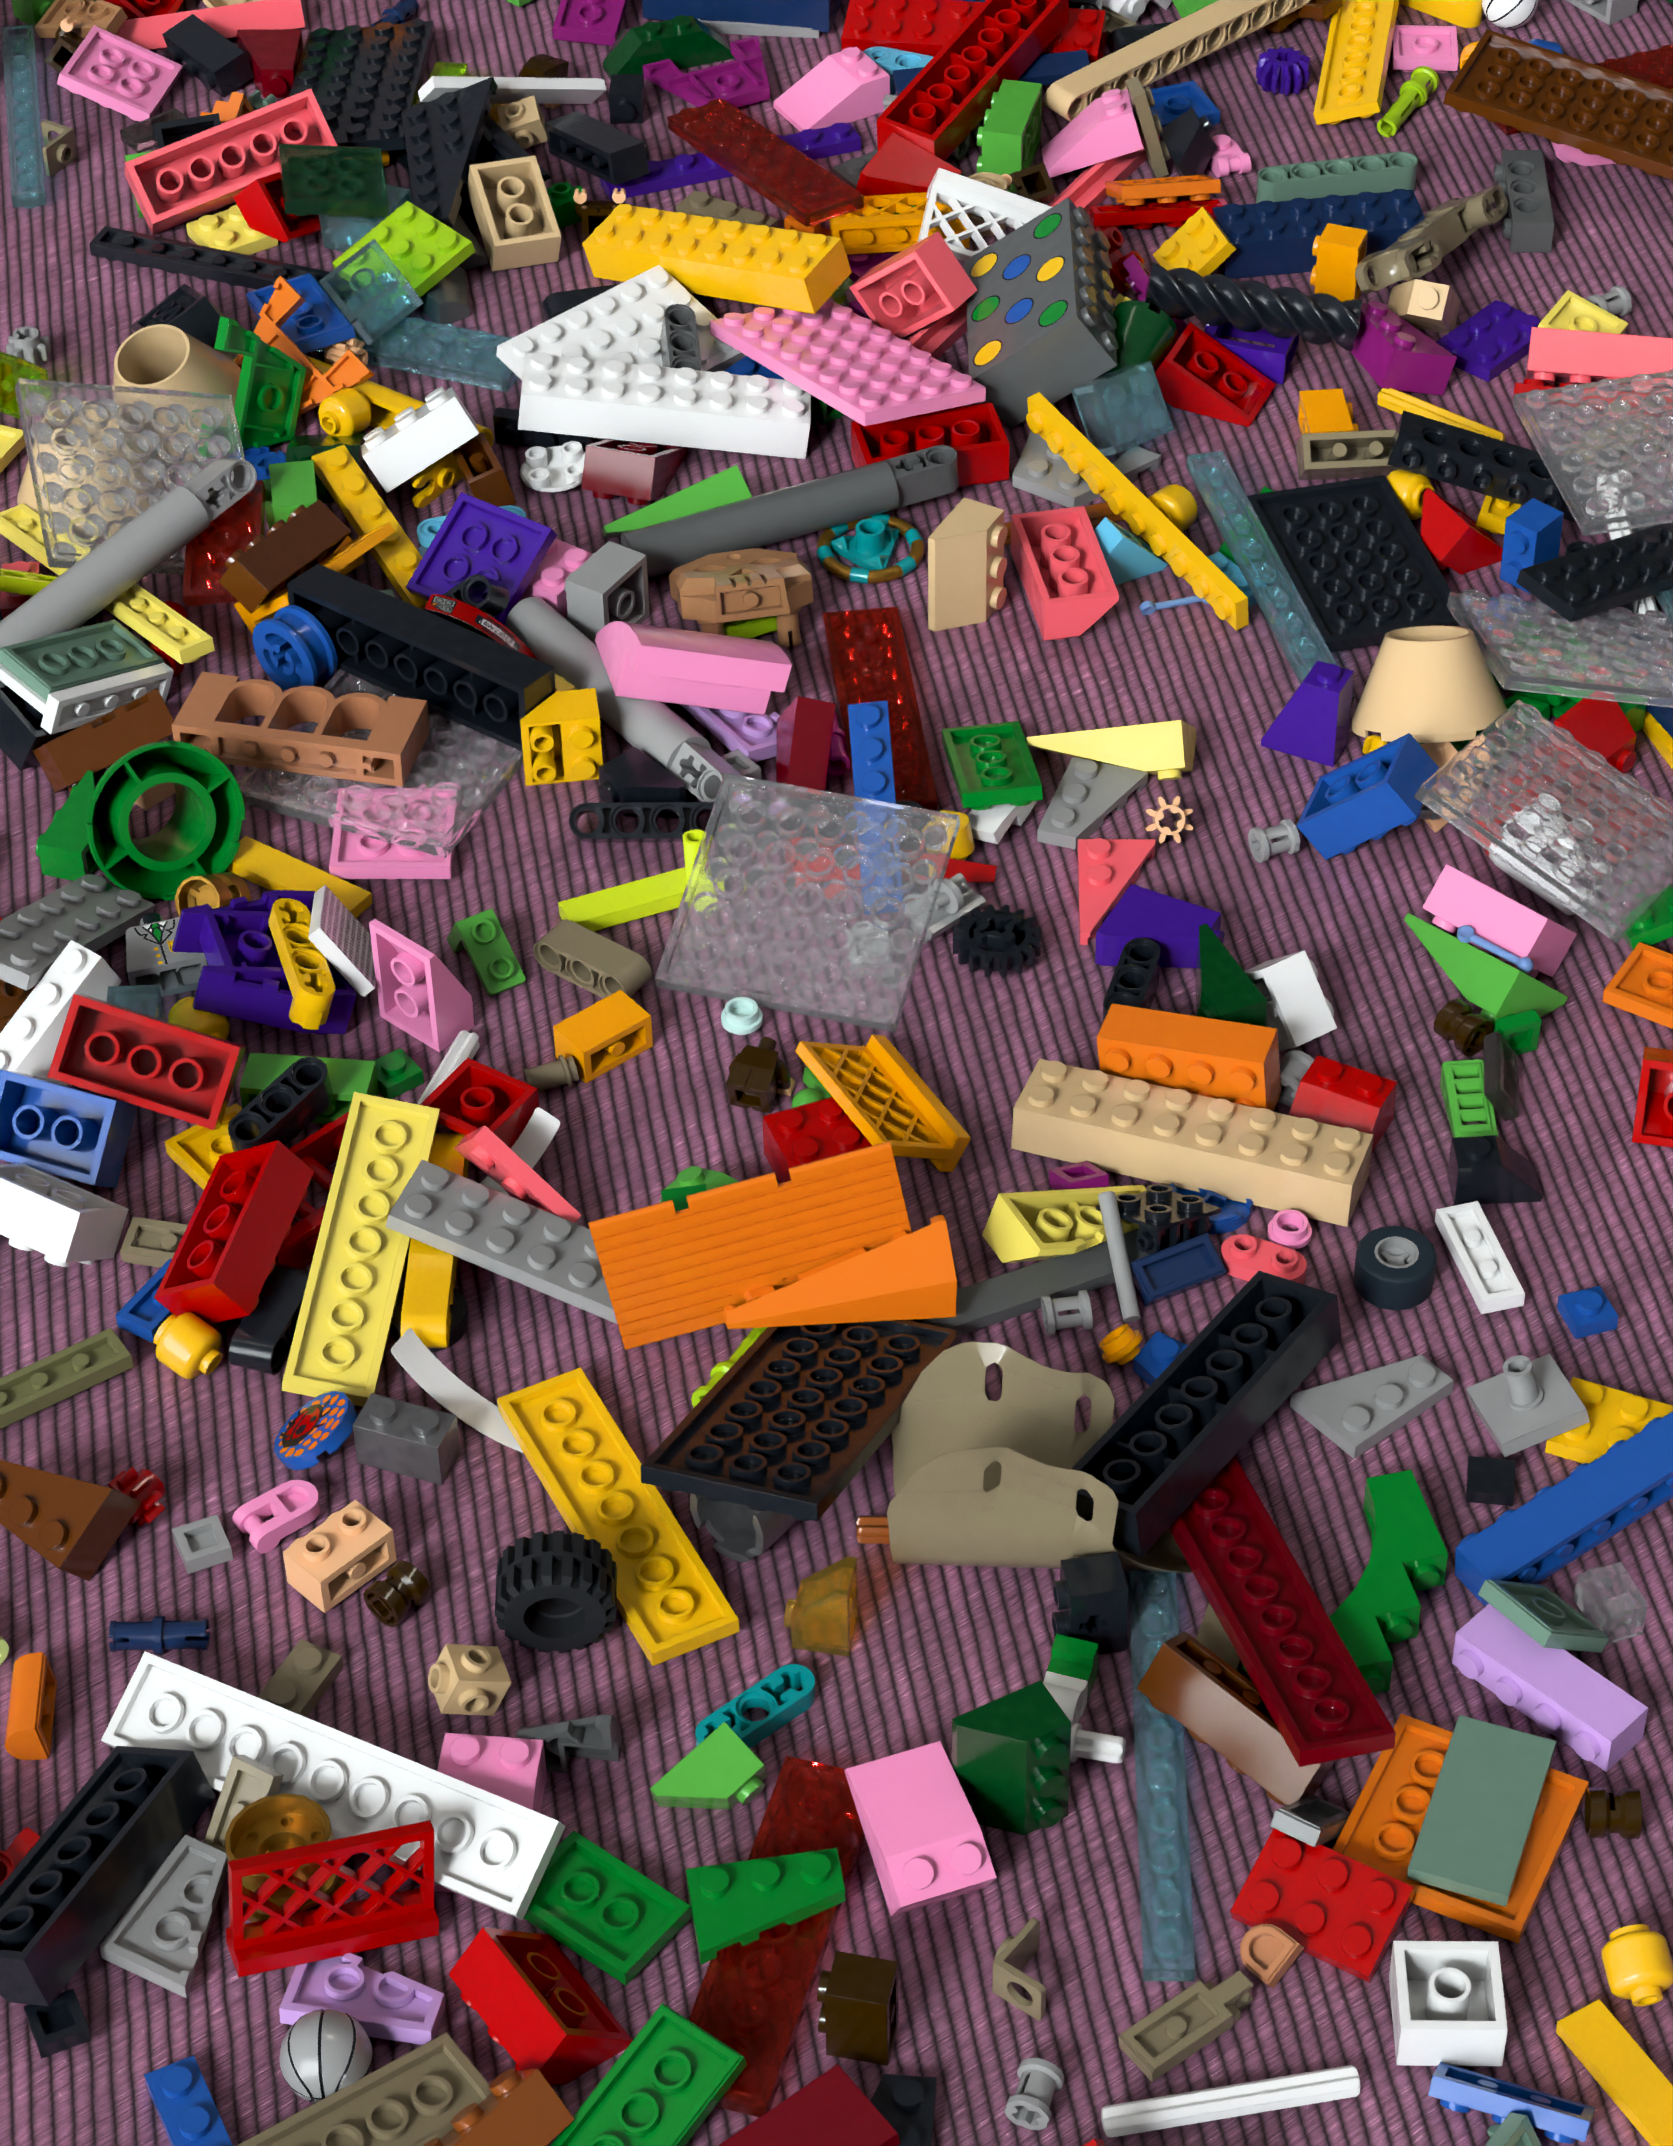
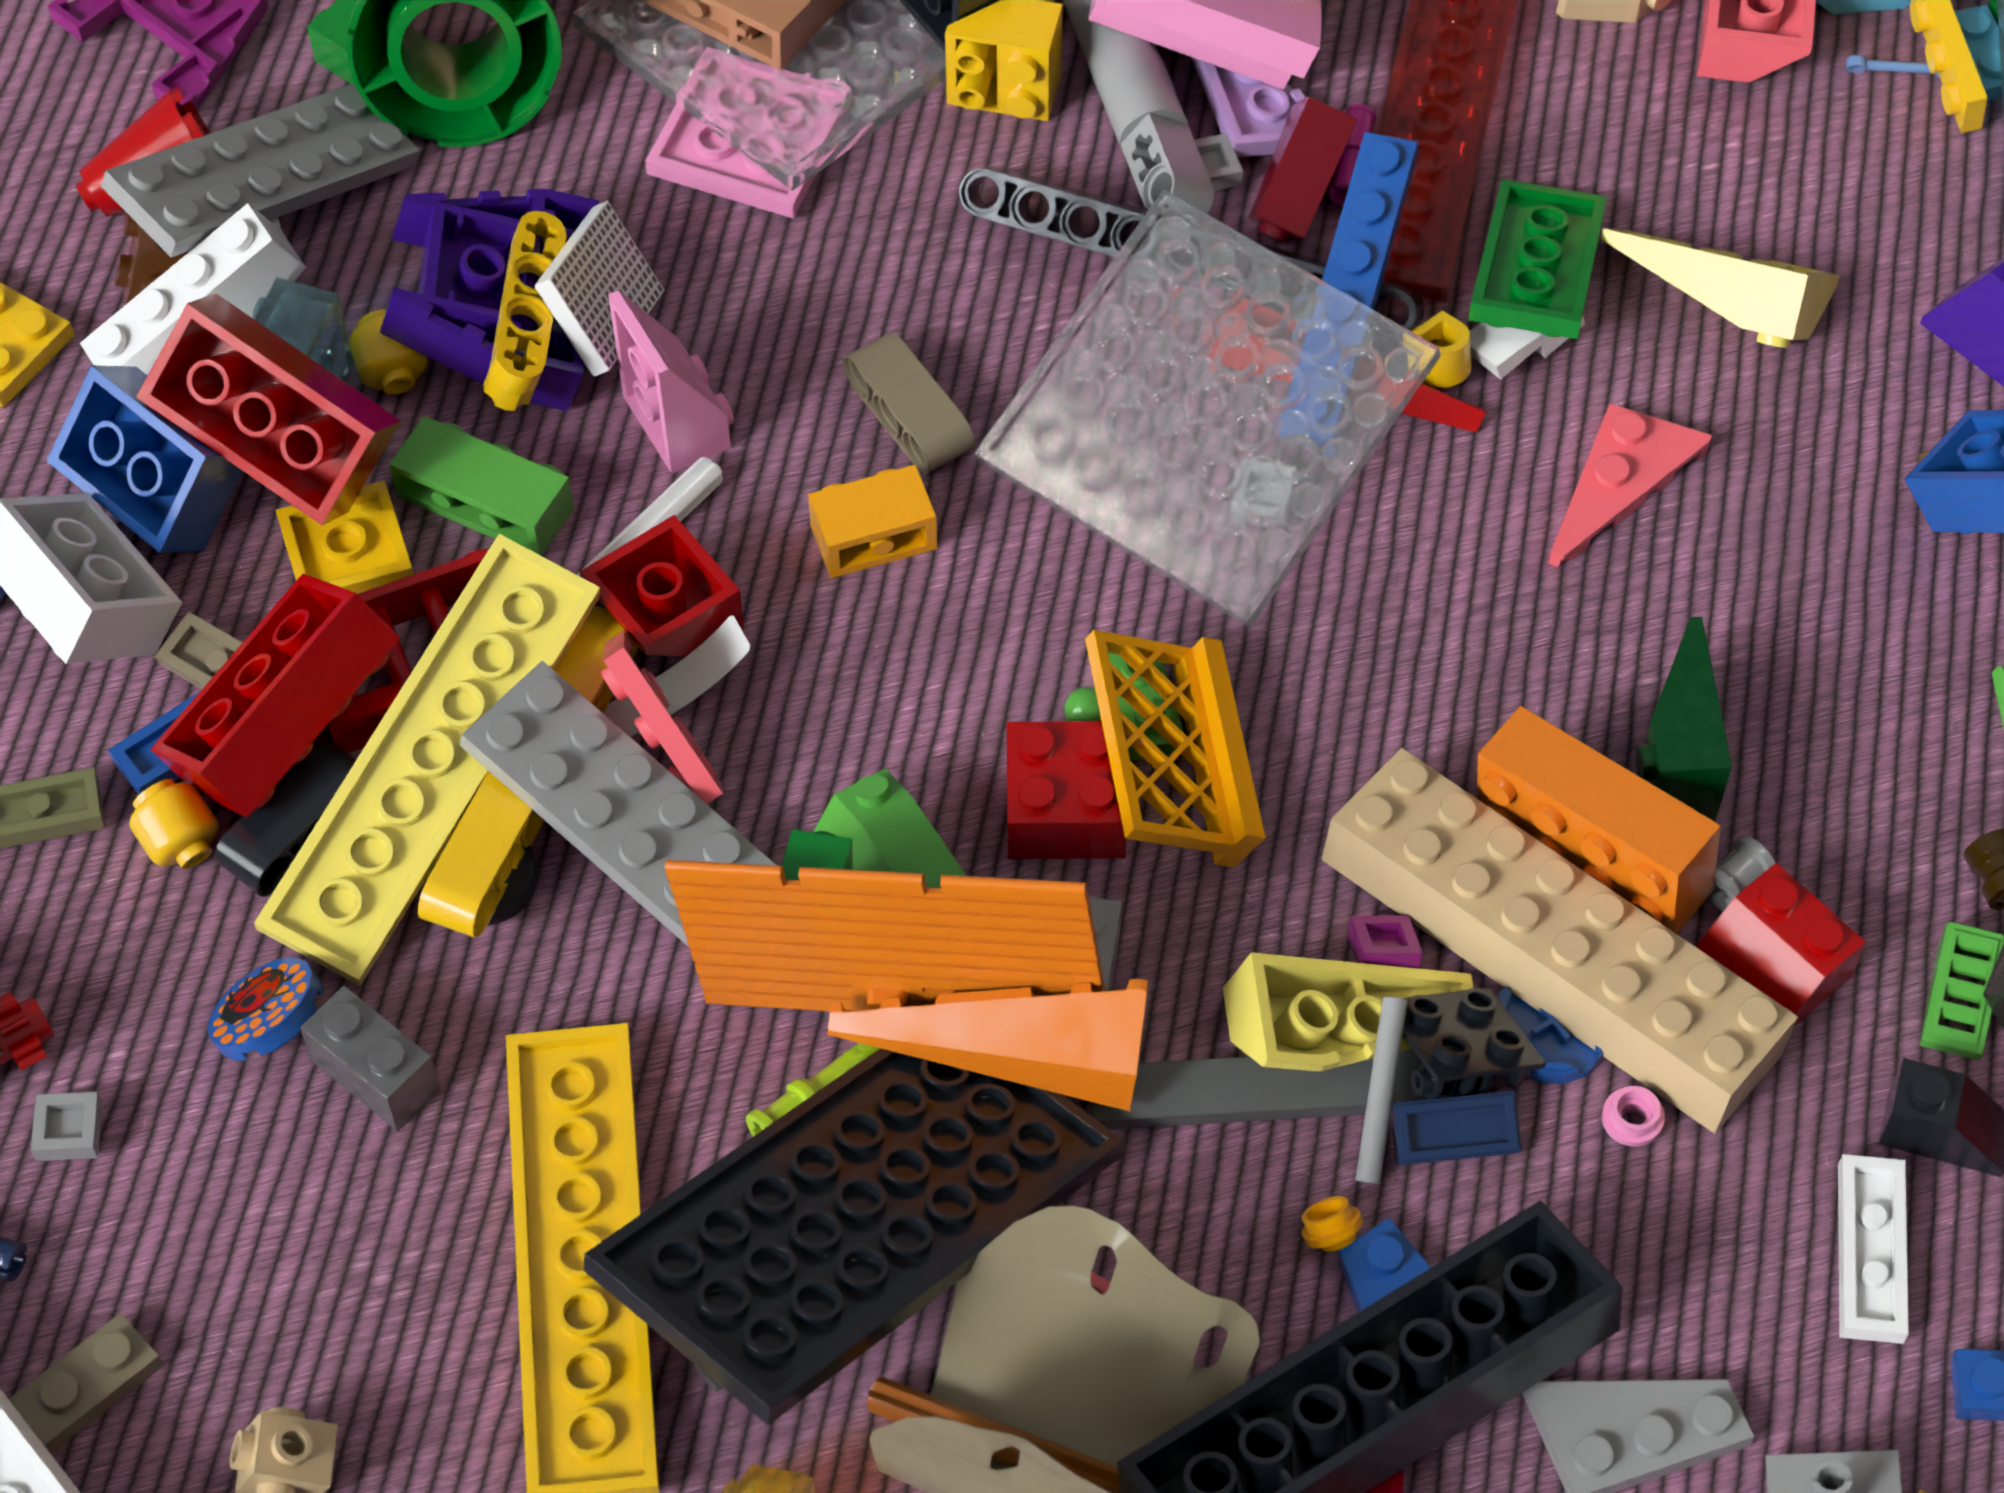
camera: 20 degrees right, 15 degrees up
(153, 960) = (364, 241): light grey torso -> none
(210, 889) = (481, 164): pearl gold wheel -> none
(283, 872) = (607, 166): yellow tile -> none
(283, 1106) = (426, 498): black beam -> none
(291, 1504) = (198, 1105): bright pink plate -> none
(339, 1556) = (211, 1209): light nougat brick -> none
(395, 1595) = (259, 1289): dark brown wheel -> none
(397, 1074) = (600, 492): green plate -> none
(450, 1390) = (453, 997): white sticker -> none
(488, 952) = (785, 351): bright green bracket -> none
(552, 1074) = (786, 558): dark tan pin -> none
(556, 1592) = (435, 1374): black tyre -> none
(635, 898) = (996, 320): neon yellow piece -> none
(639, 779) = (1078, 151): black slope -> none
(741, 1016) = (1061, 544): light aqua plate -> none
(758, 1076) = (1038, 647): dark brown piece -> none
(952, 902) = (1399, 460): light grey hips -> none
(997, 940) = (1435, 532): black gear -> none
(1079, 1303) = (1281, 1148): light grey bush -> none
(1084, 800) = (1645, 342): light grey wing -> none
(1135, 975) = (1584, 648): black beam -> none
(1157, 917) = (1650, 582): dark purple slope -> none
(1158, 815) = (1729, 423): light nougat gear -> none
(1246, 1255) = (1574, 1152): coral plate -> none
(1287, 837) = (1870, 486): light grey bush -> none
(1293, 999) = (1776, 754): white brick -> none
(1395, 1268) = (1758, 1206): black wheel -> none

